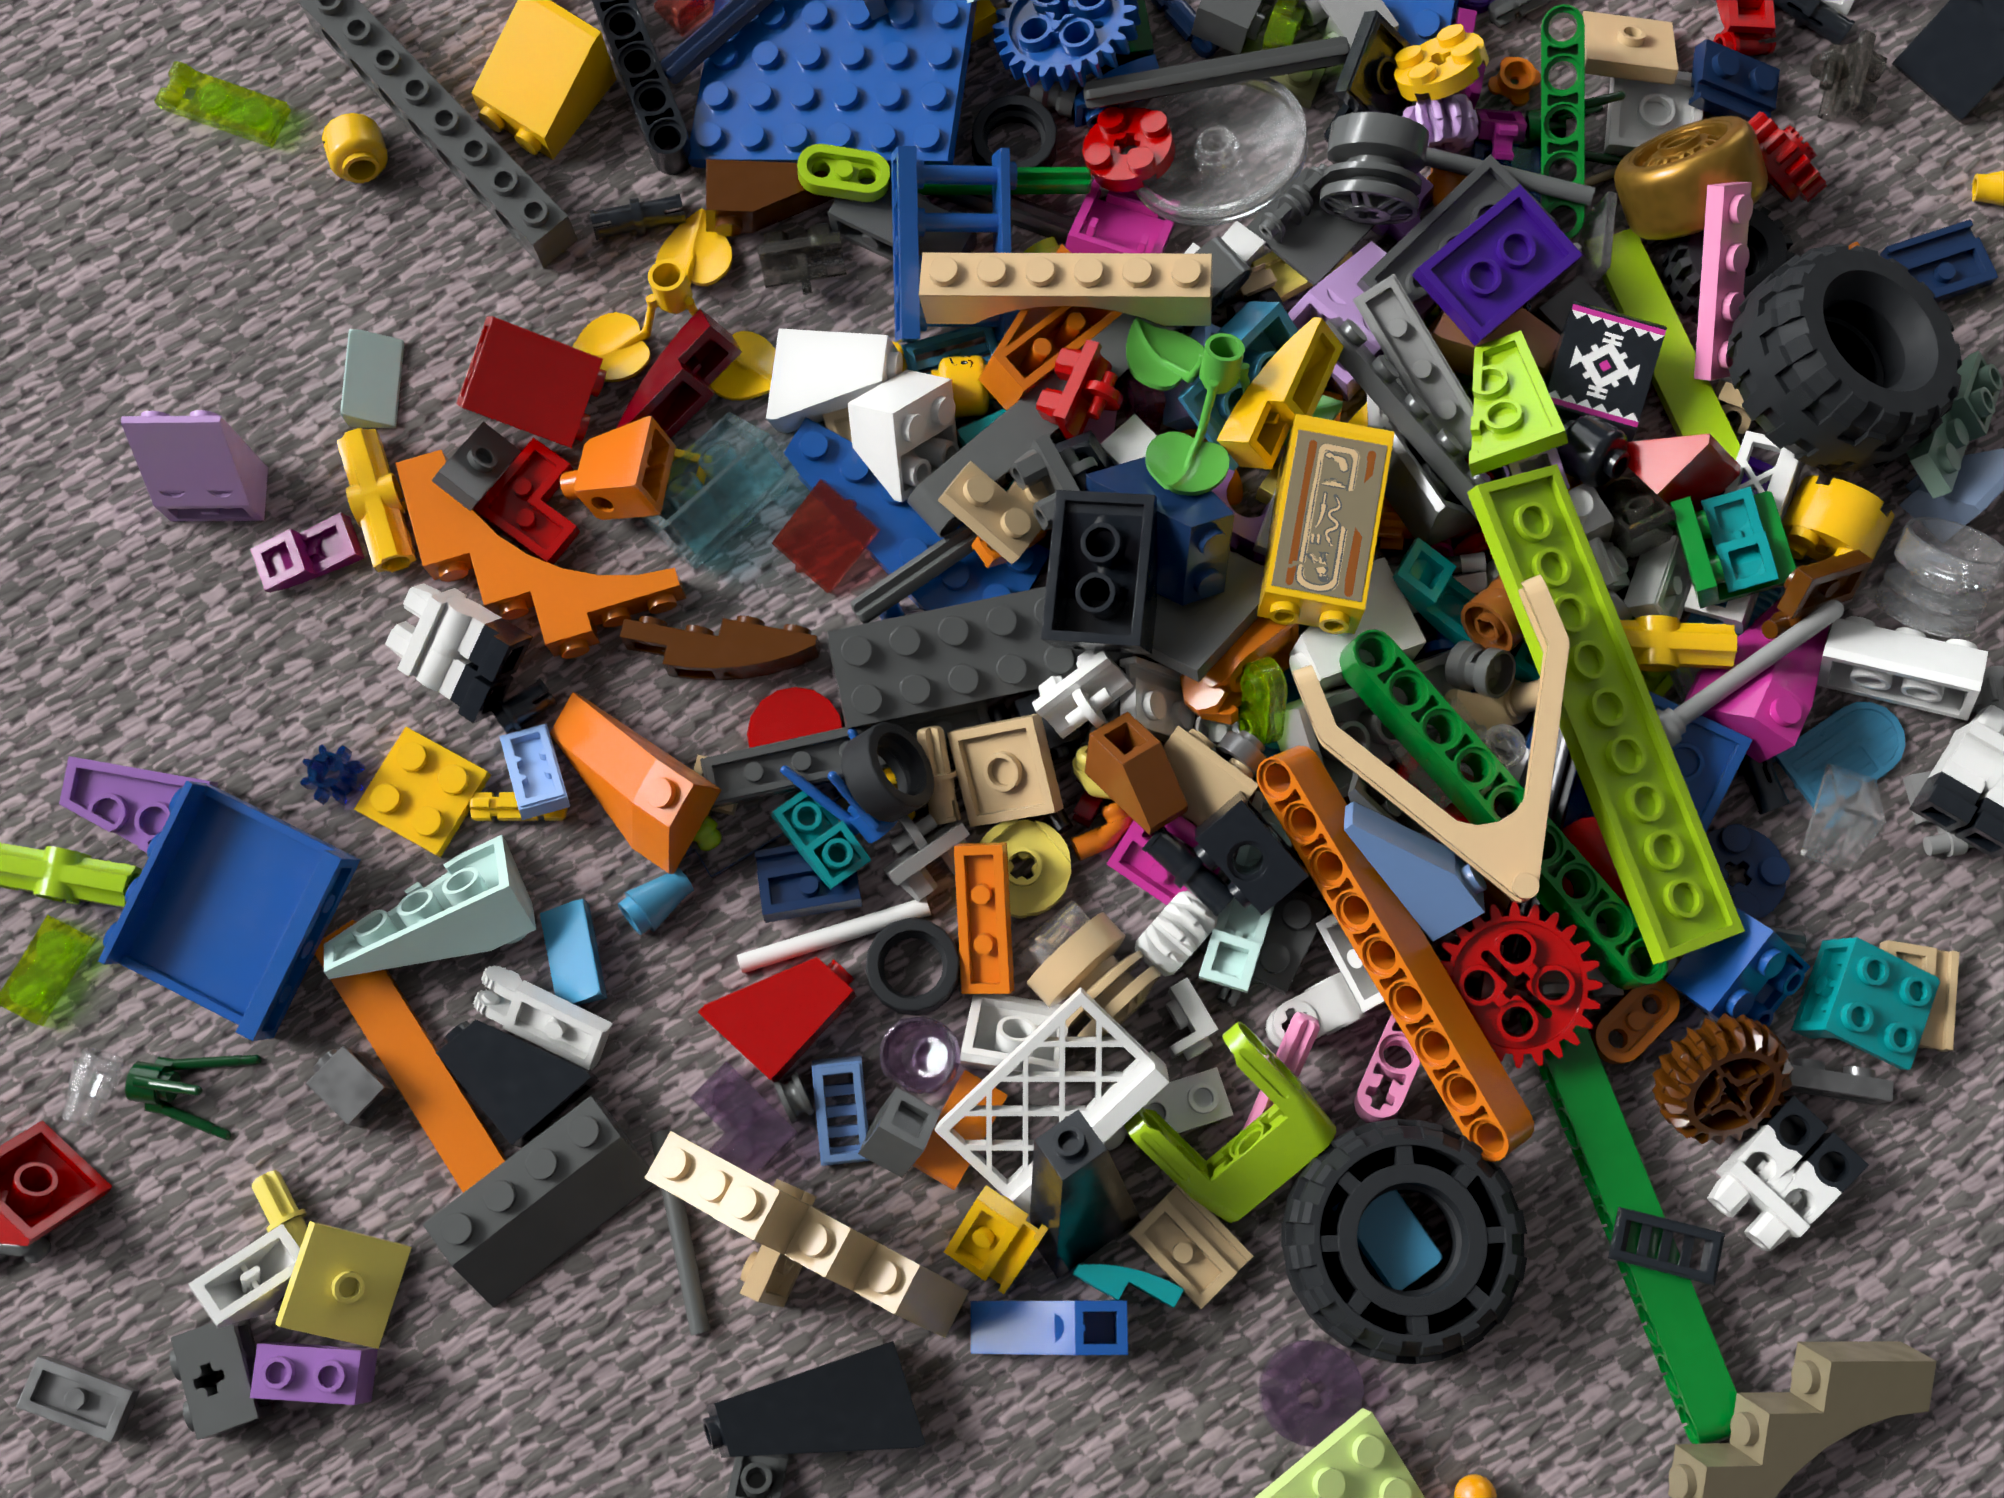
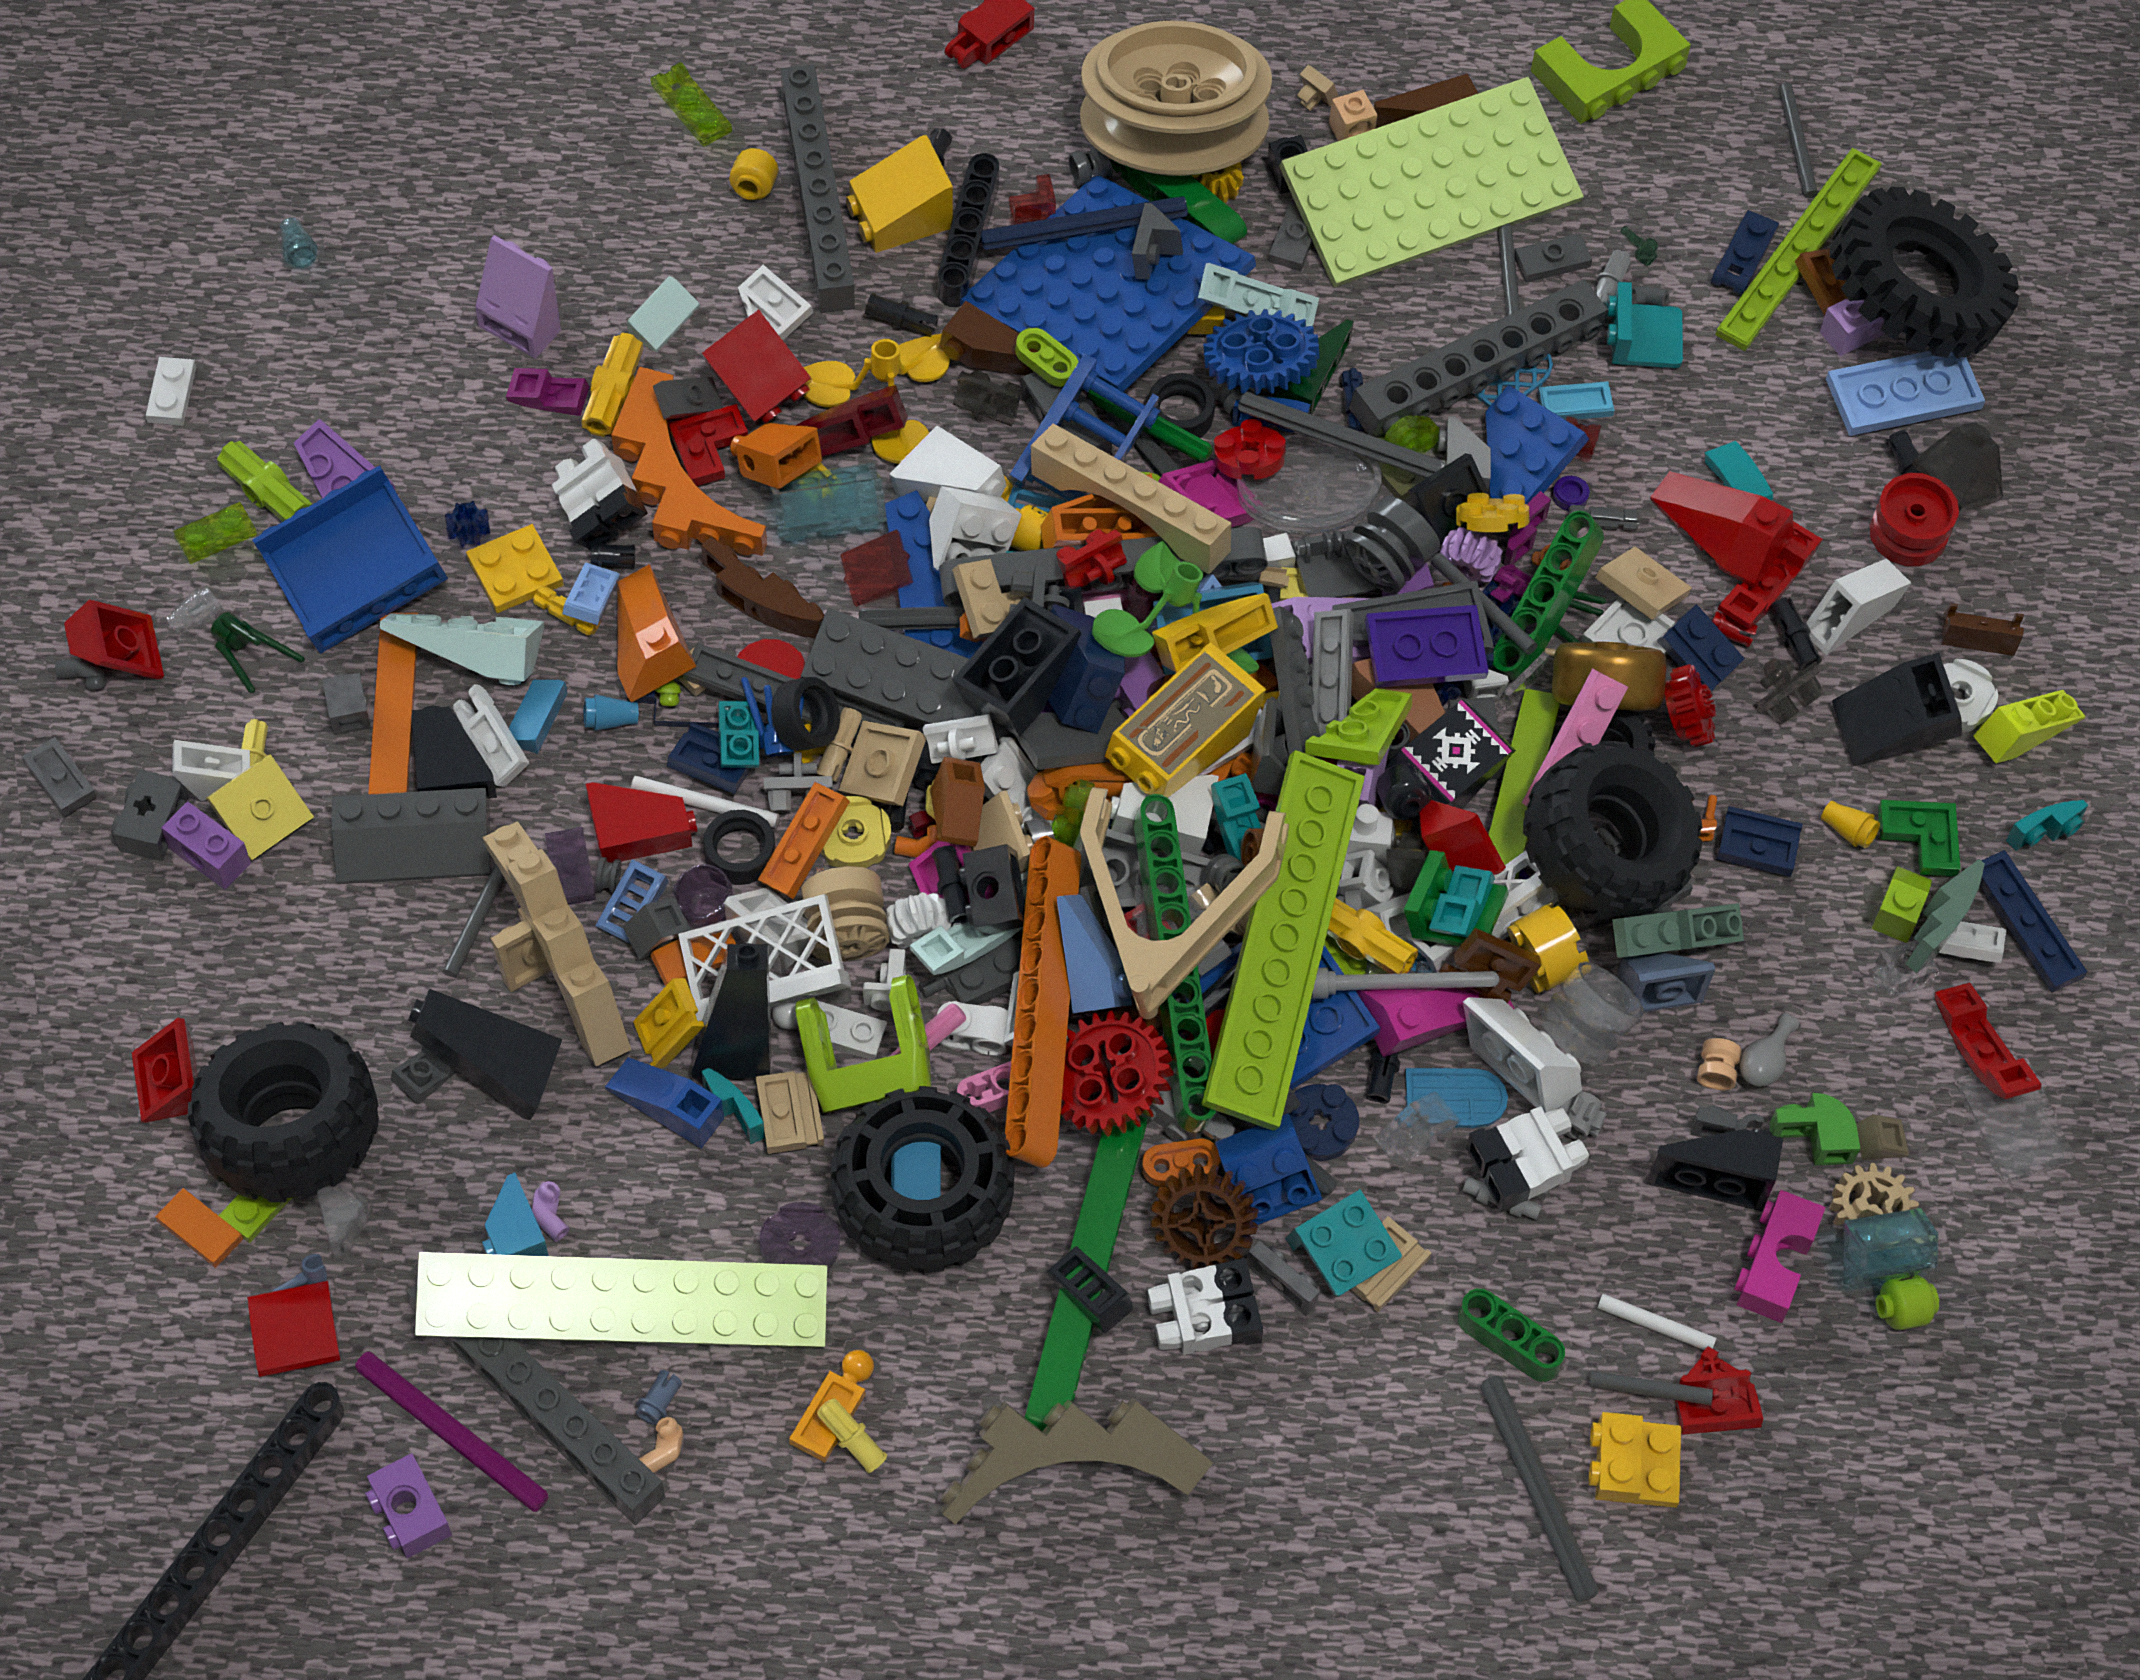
camera: 30 degrees right, 15 degrees down
(486, 288) = (775, 300): none -> white wing

